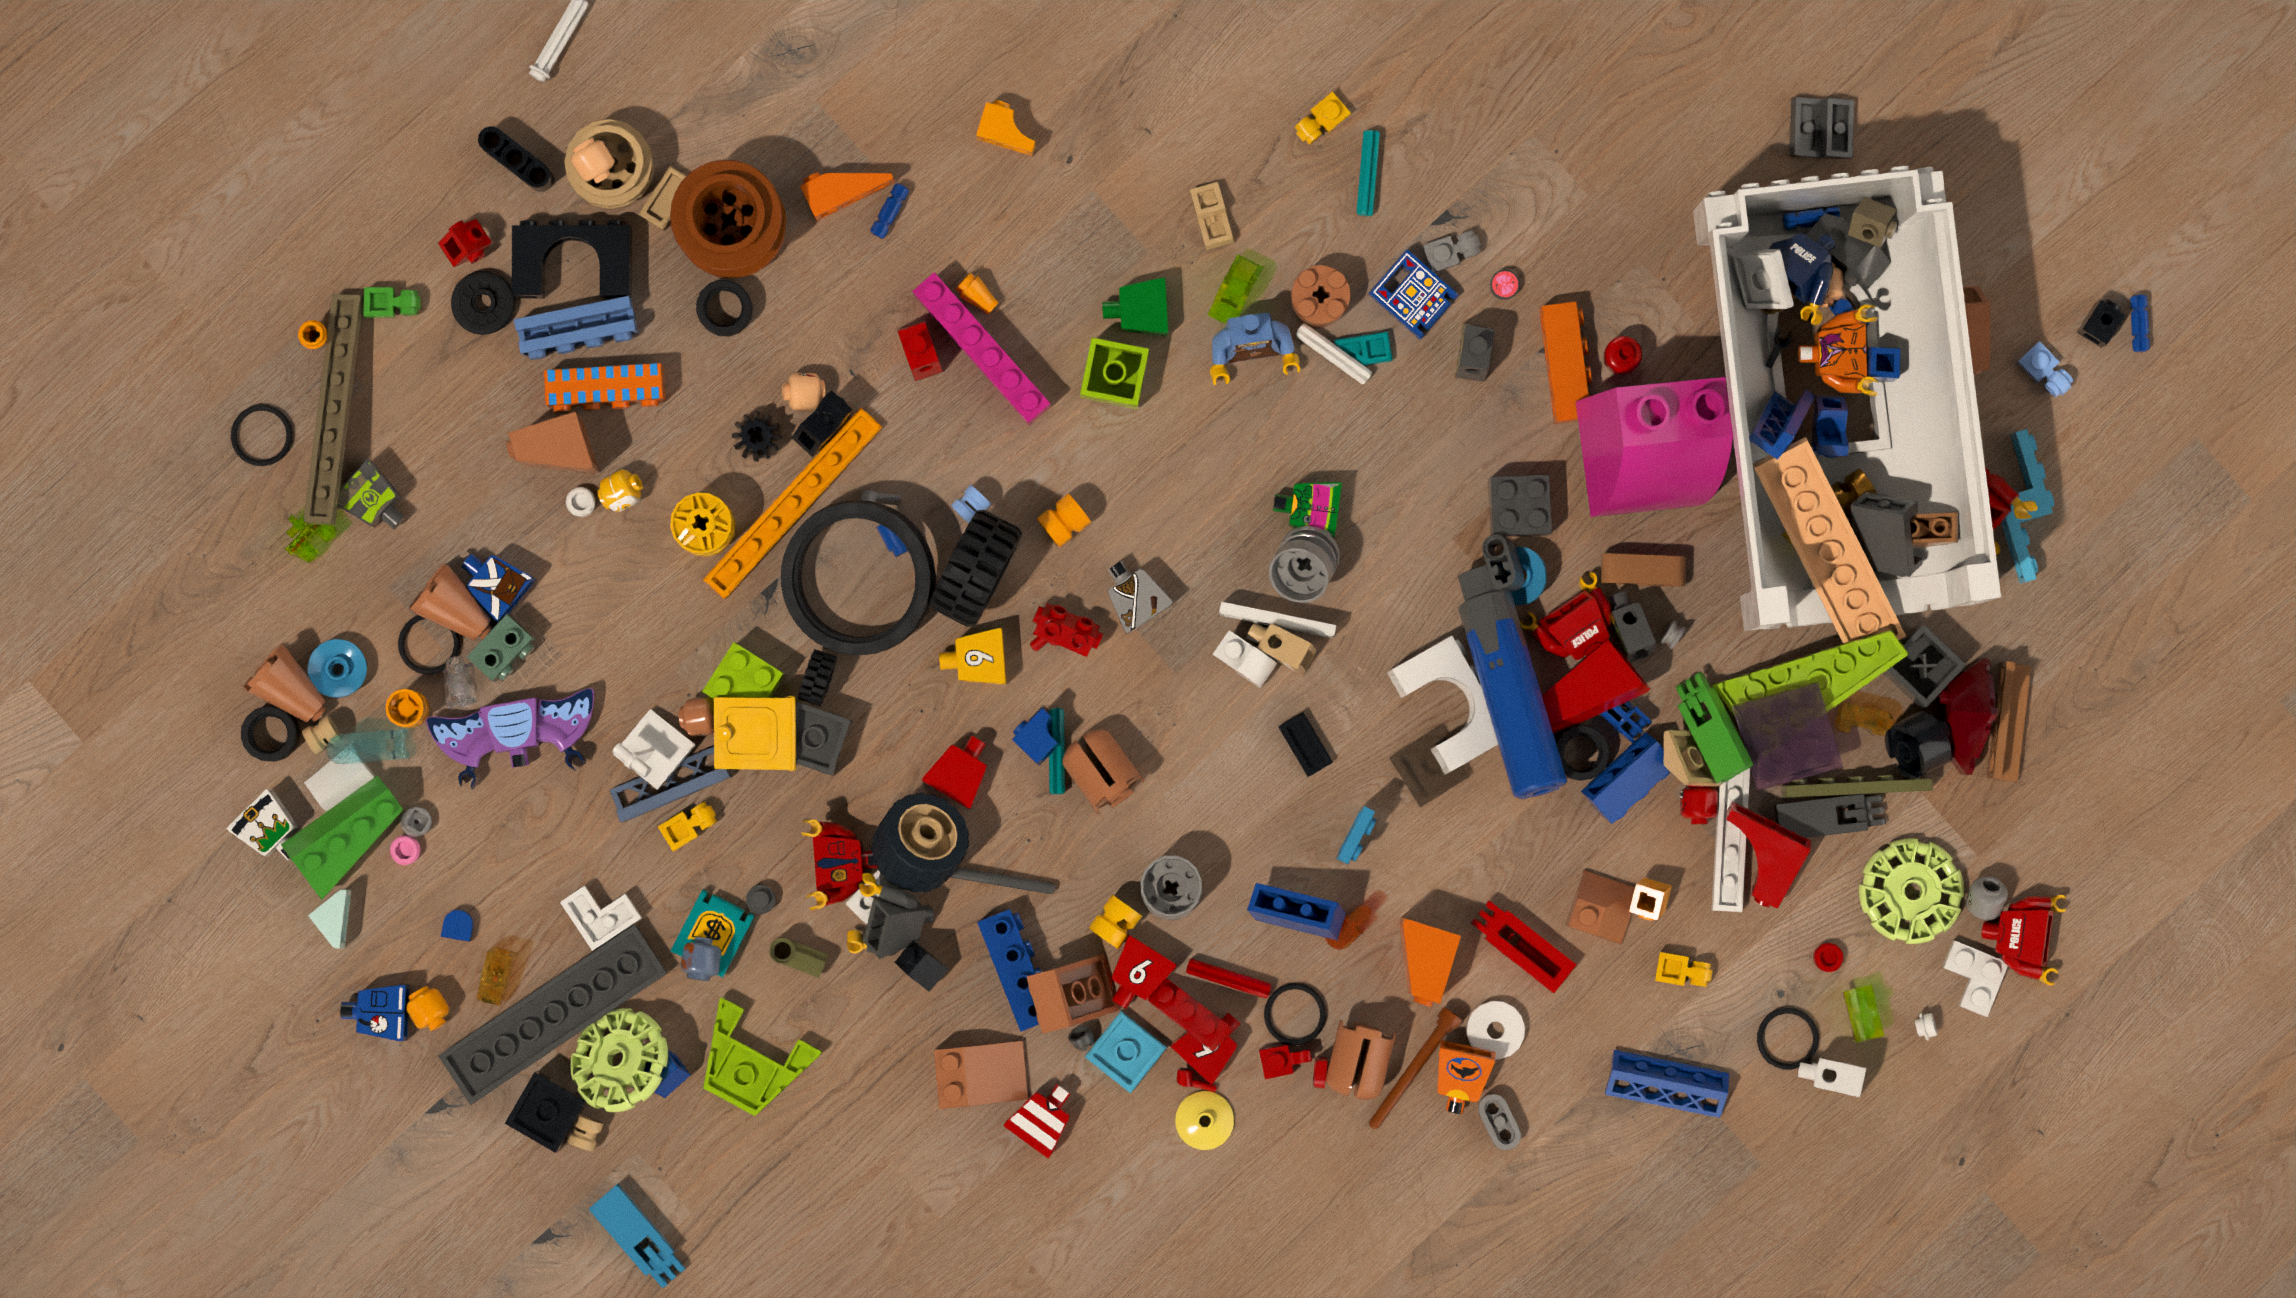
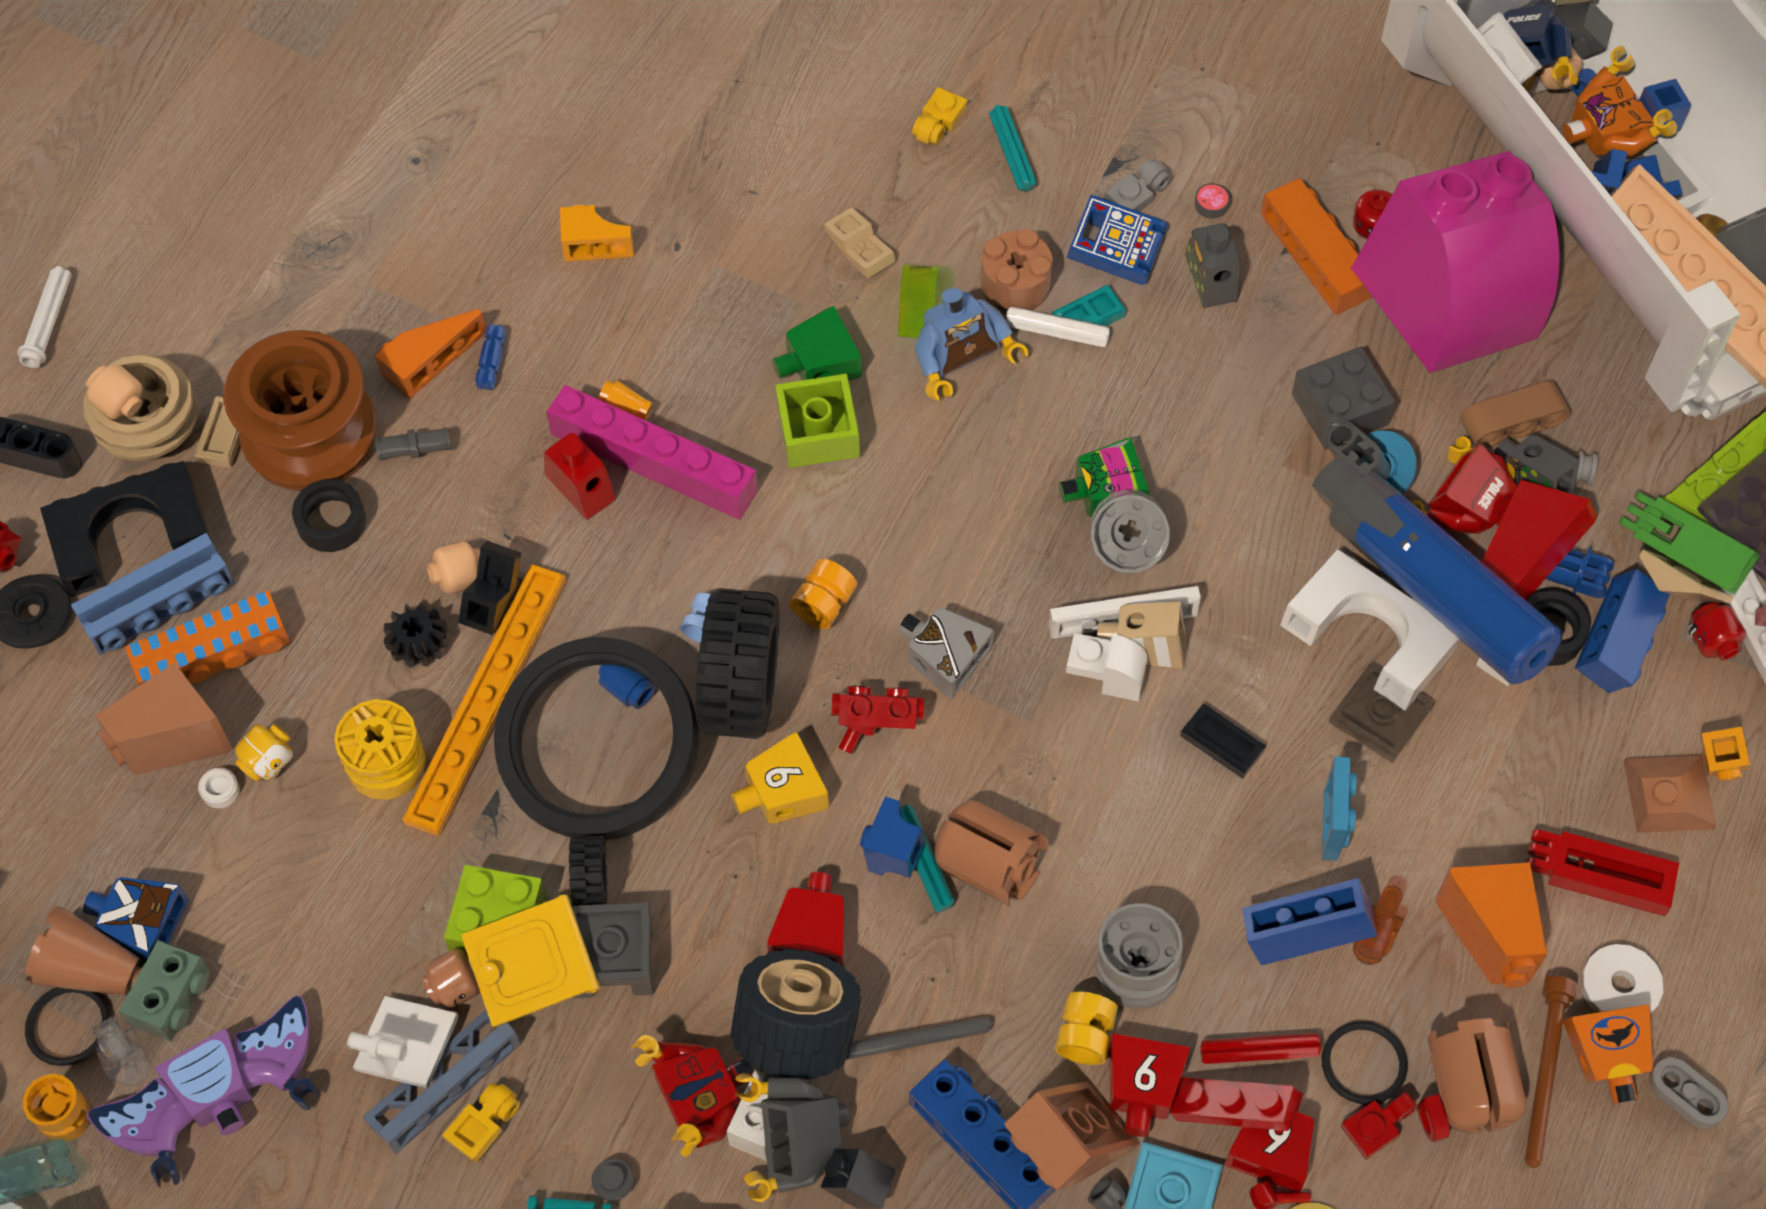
camera: 15 degrees left, 25 degrees down
(805, 268) = (412, 443): none -> dark grey pin

